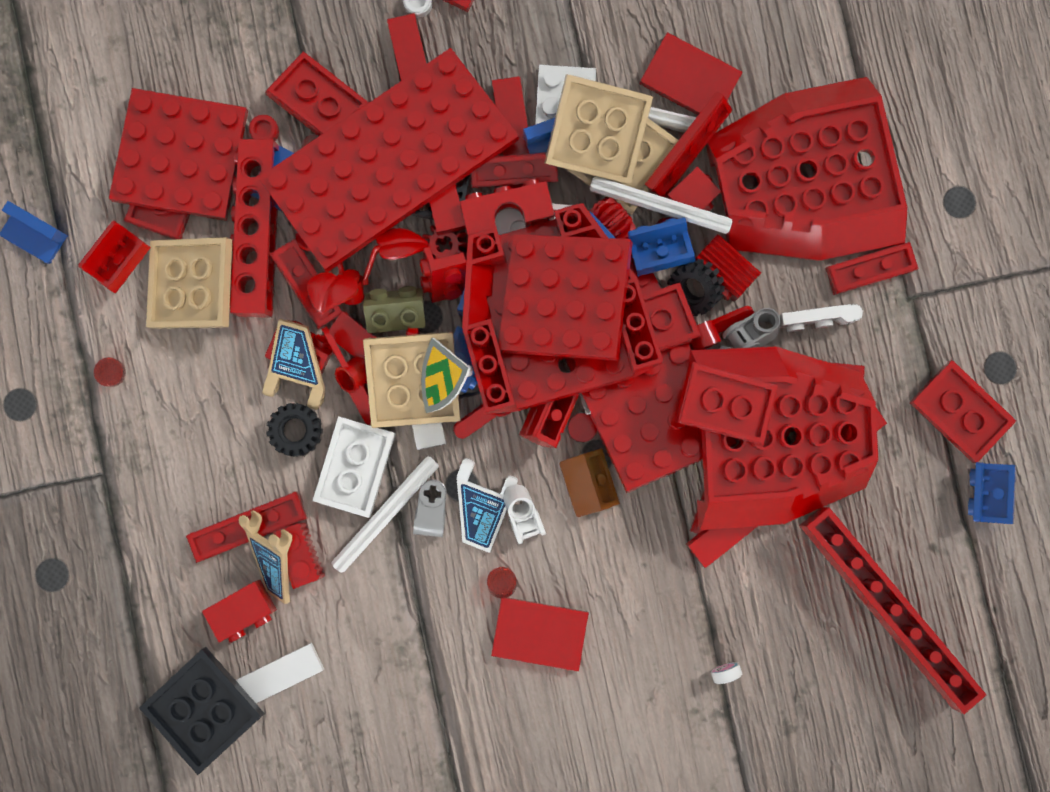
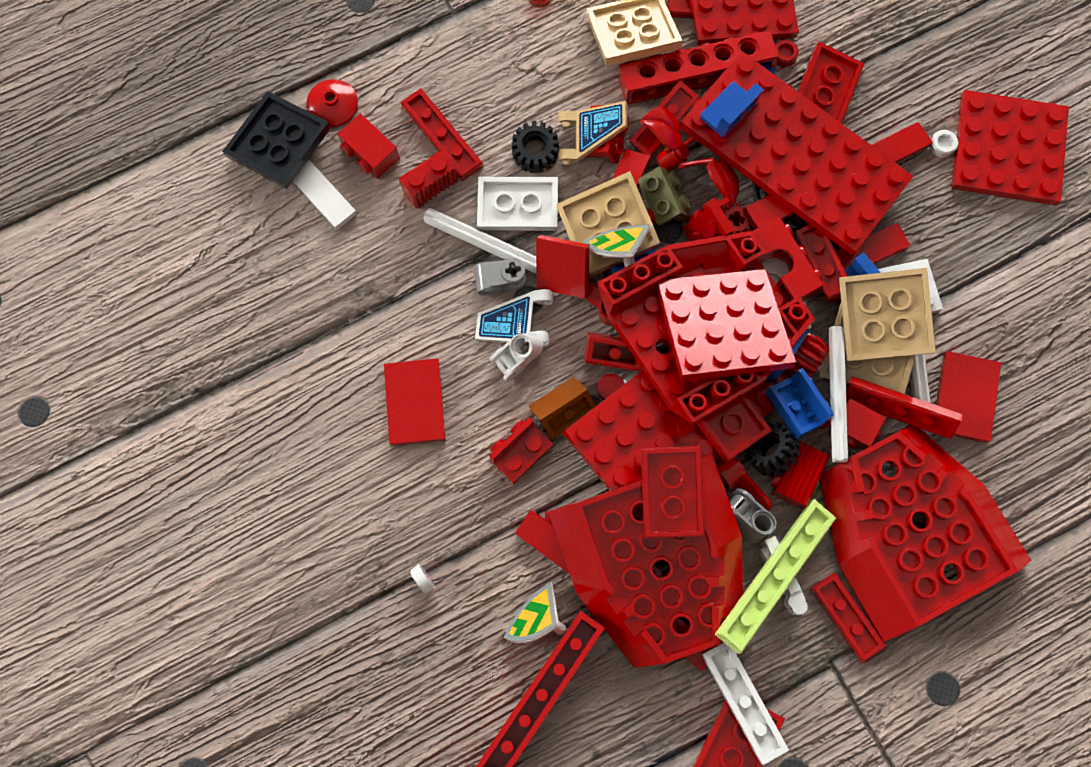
camera: 80 degrees right, 10 degrees down
(185, 635) = (338, 110): none -> red dish
(269, 556) = (422, 153): flag -> none
(326, 212) = (730, 107): none -> blue panel
(351, 378) = (598, 172): red piece -> none
(444, 441) = (562, 266): none -> red tile
(501, 582) = (451, 355): clear red tile -> none
(623, 538) = (520, 450): none -> red bracket
(796, 570) = (535, 618): none -> shield
(823, 326) = (775, 577): none -> yellowish green tile
(932, 393) = (745, 703): none -> white plate

